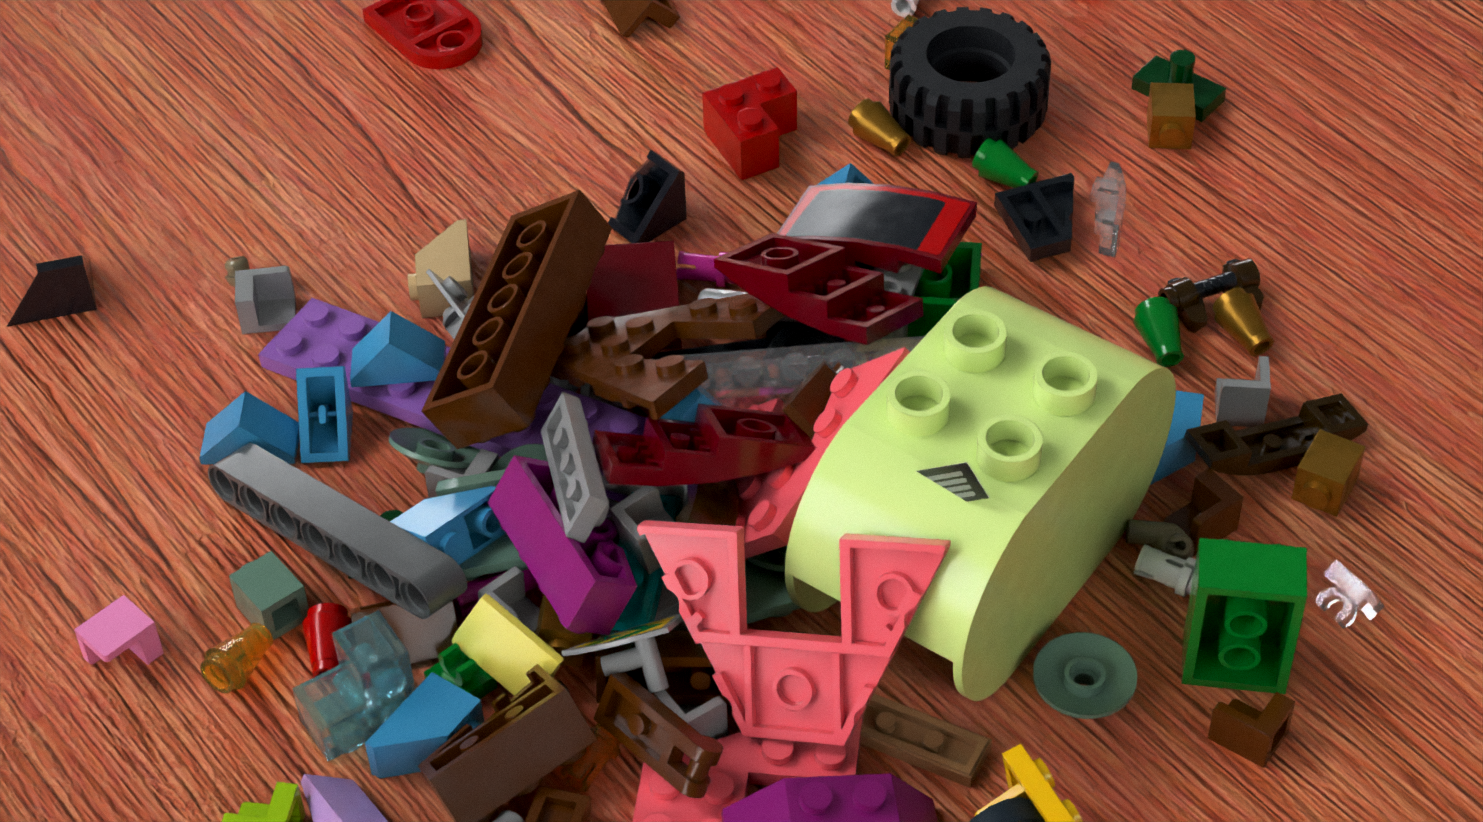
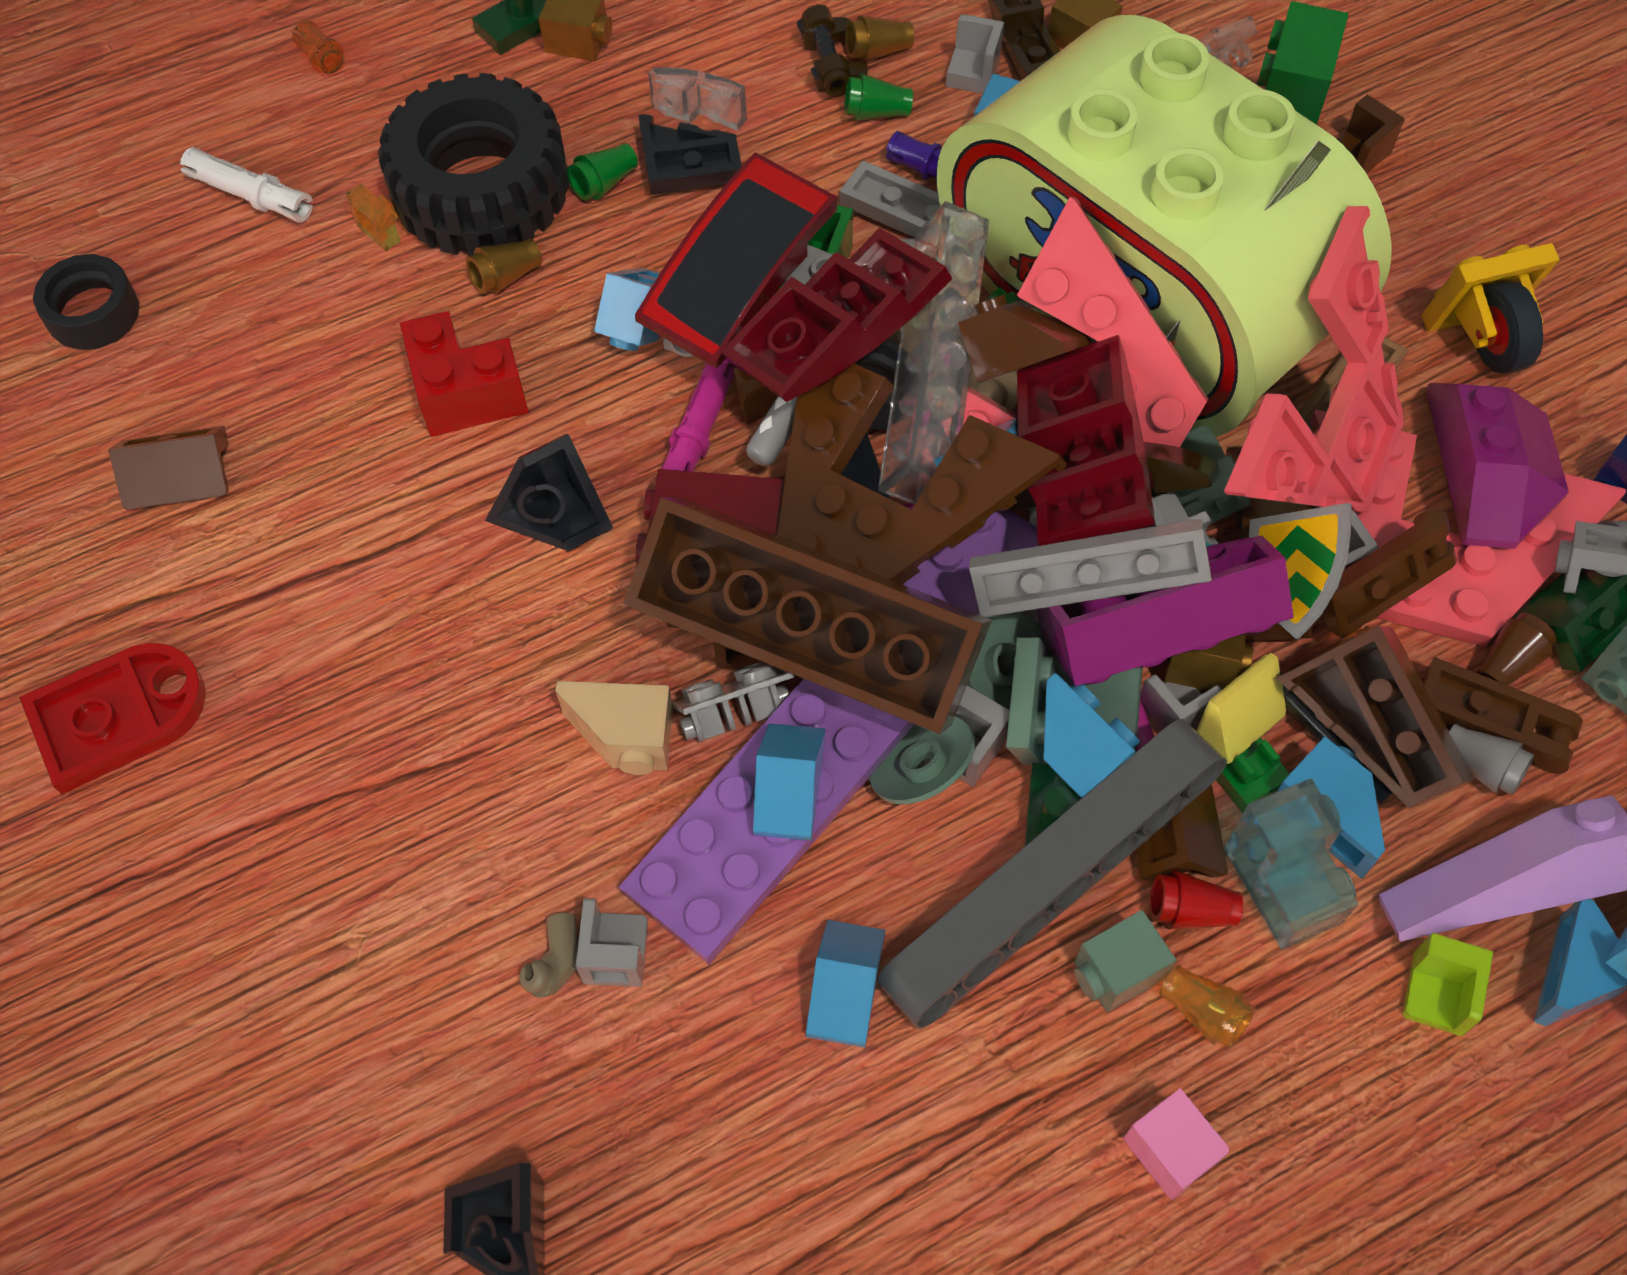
camera: 80 degrees left, 15 degrees up
(324, 414) = (847, 882): dark azure slope -> none

